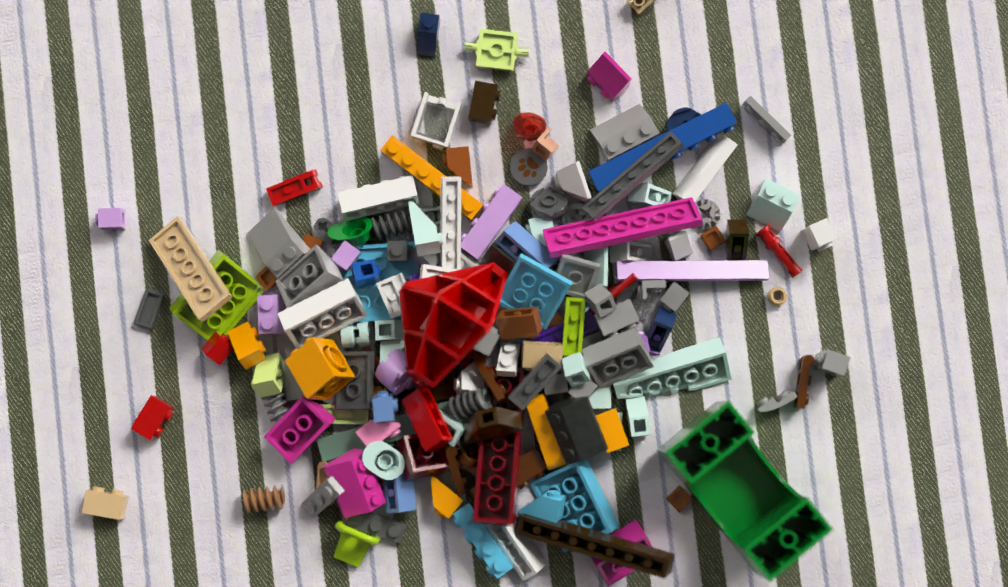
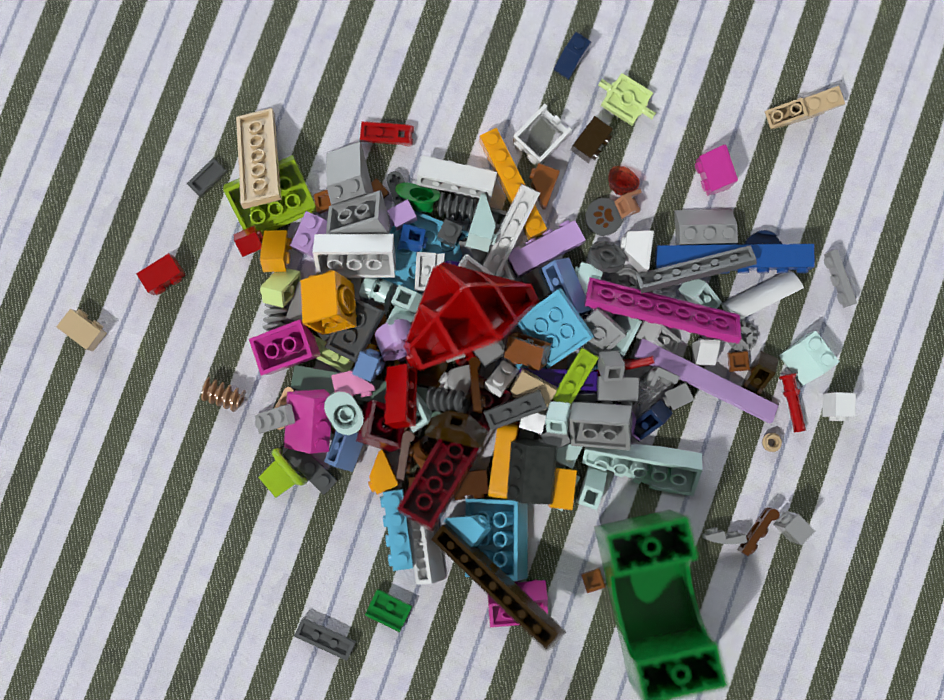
camera: 30 degrees right, 0 degrees up
(111, 218) = (212, 82): lavender brick -> none

